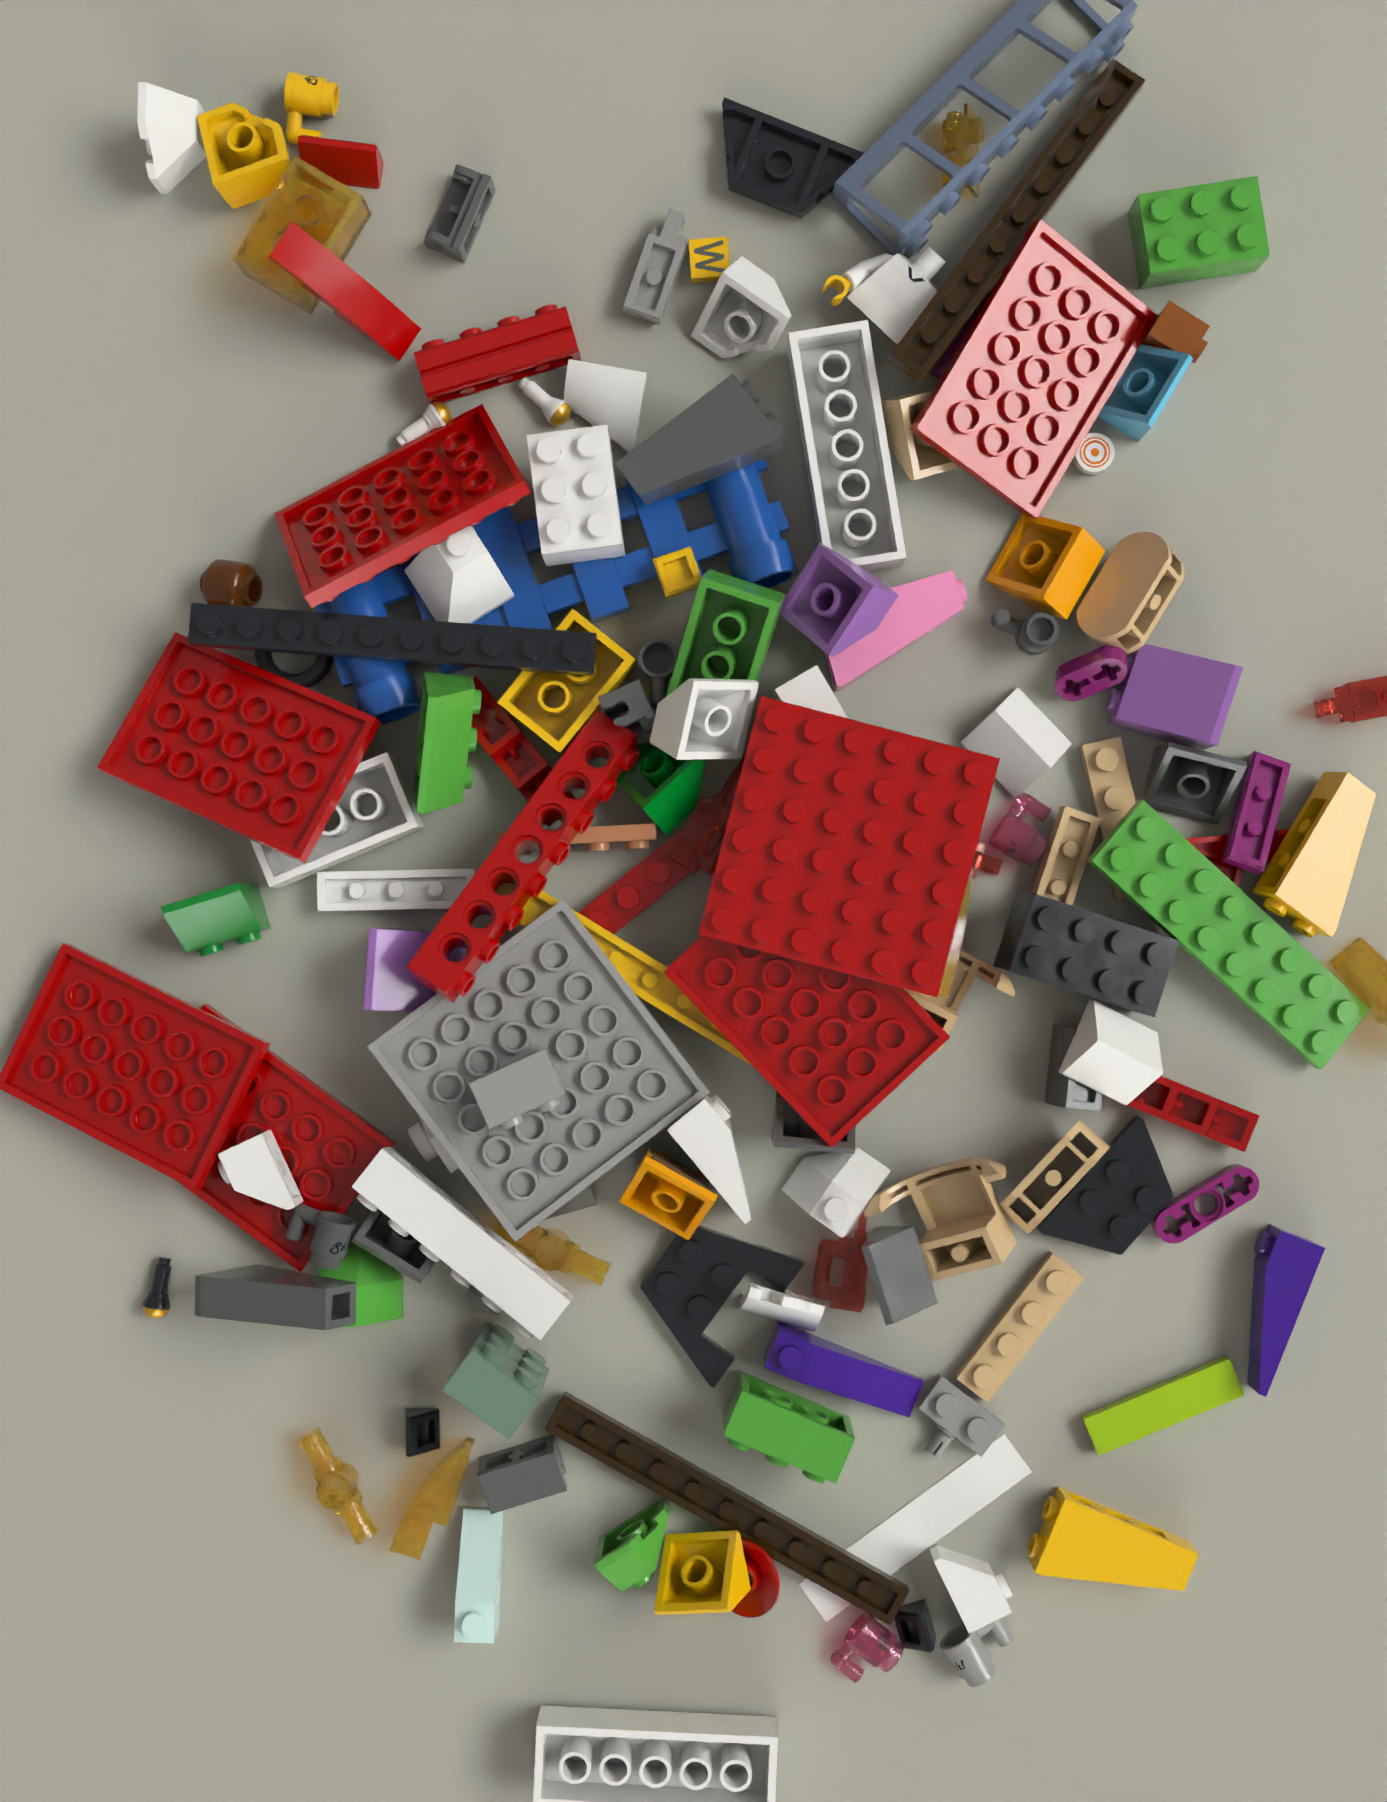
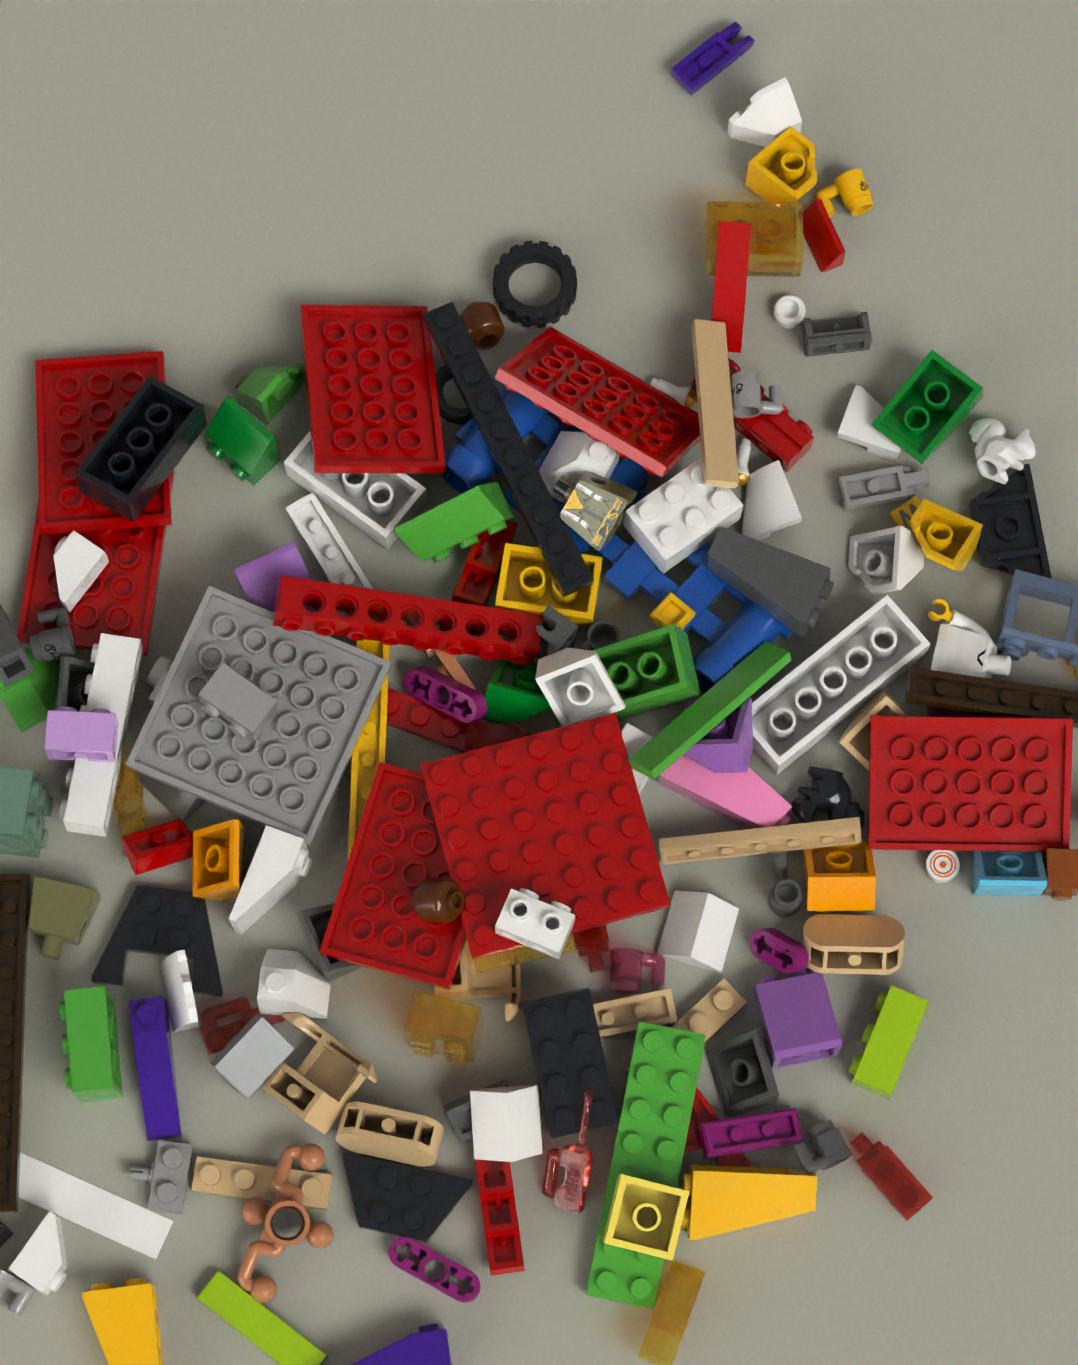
camera: 65 degrees right, 15 degrees down
(63, 159) = (710, 58): none -> dark purple hinge
(167, 1033) = (141, 448): none -> black brick
(173, 853) = (269, 389): none -> bright green slope
(177, 490) = (527, 254): none -> black tyre
(404, 249) = (789, 311): none -> white tile
(458, 1273) = (81, 734): none -> lavender brick
(474, 387) = (714, 404): none -> tan tile
(482, 349) = (747, 396): none -> light grey piece
(515, 584) = (594, 506): none -> olive torso
(584, 238) = (857, 425): none -> white slope
(603, 163) = (928, 407): none -> green slope
(612, 1245) = (158, 846): none -> red slope
(625, 1383) = (60, 914): none -> olive torso
(646, 846) = (457, 691): none -> magenta beam
(695, 123) = (999, 453): none -> white animal
(756, 232) = (945, 535): none -> yellow slope
(812, 594) = (709, 710): none -> bright green tile
(858, 999) = (436, 900): none -> reddish brown head
(948, 913) = (535, 922): none -> white brick
(957, 522) = (827, 794): none -> black animal
(968, 623) = (760, 840): none -> tan tile
(985, 1063) = (443, 1028): none -> clear yellow brick
(1063, 1320) = (270, 1244): none -> nougat wheel
(1187, 1004) = (577, 1162): none -> clear red piece
(1244, 618) = (888, 1041): none -> lime brick
(1297, 970) = (645, 1216): none -> light yellow brick
(1314, 742) = (827, 1146): none -> dark grey piece

